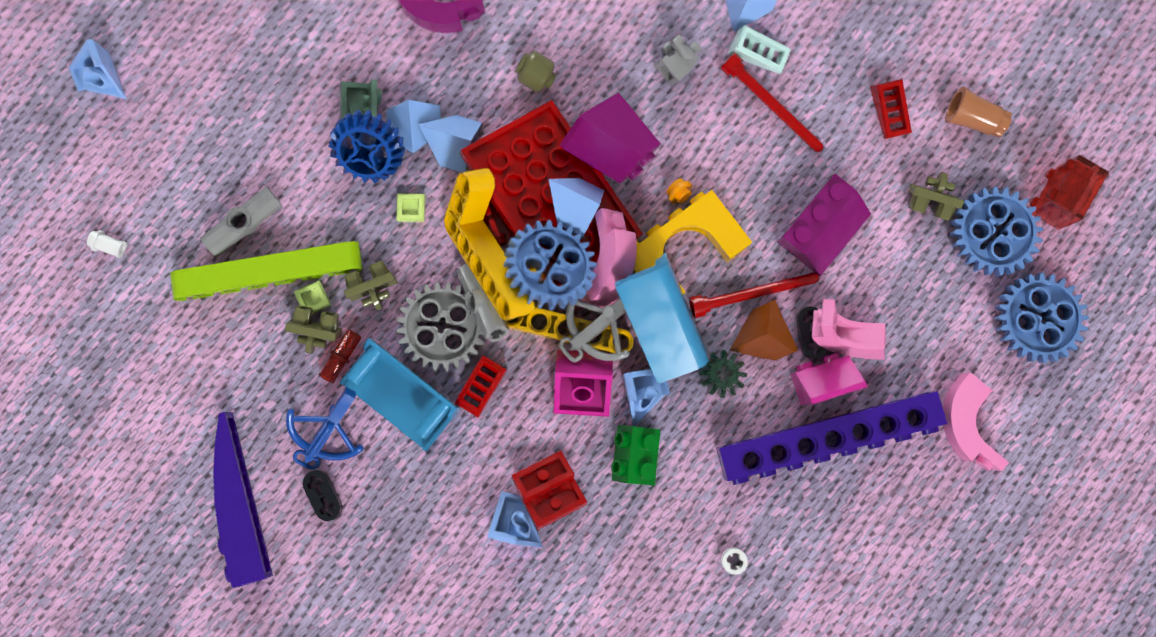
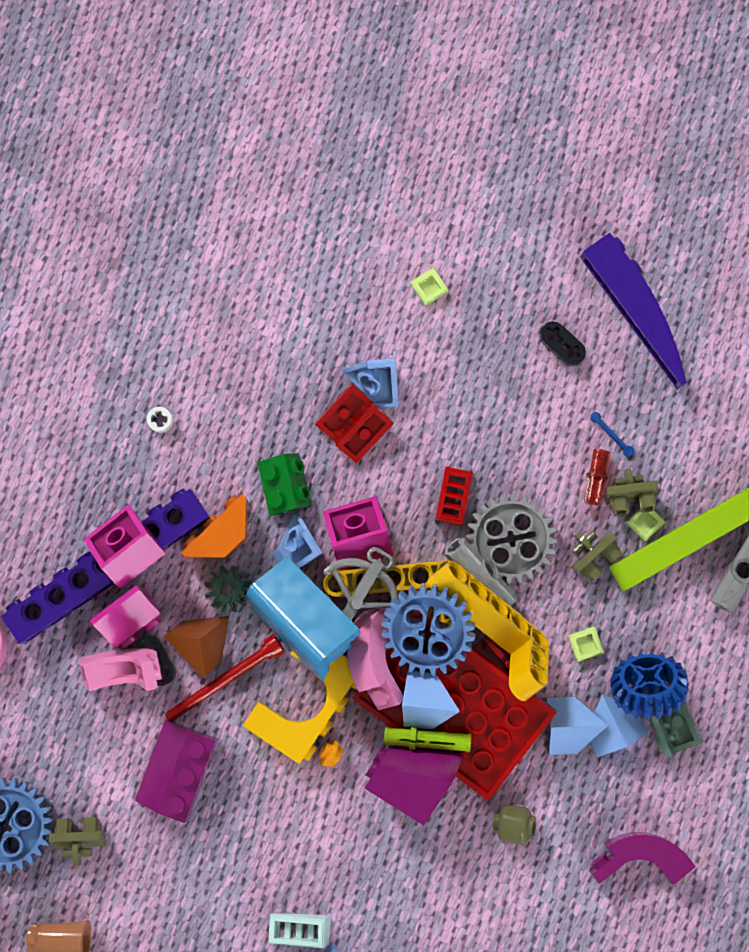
camera: 160 degrees right, 0 degrees up
(302, 371) = (627, 450): none -> blue hinge
(314, 448) = (587, 382): blue piece -> none
(399, 395) = (527, 461): dark azure piece -> none
(428, 598) = (429, 286): none -> yellowish green tile
(587, 170) = (427, 739): none -> lime pin
(678, 63) = (376, 887): light grey piece -> none
(711, 428) = (221, 533): none -> orange slope
(735, 68) = (317, 901): red piece -> none
(810, 446) = (124, 547): none -> dark pink slope
(882, 111) = (162, 919): red slope -> none

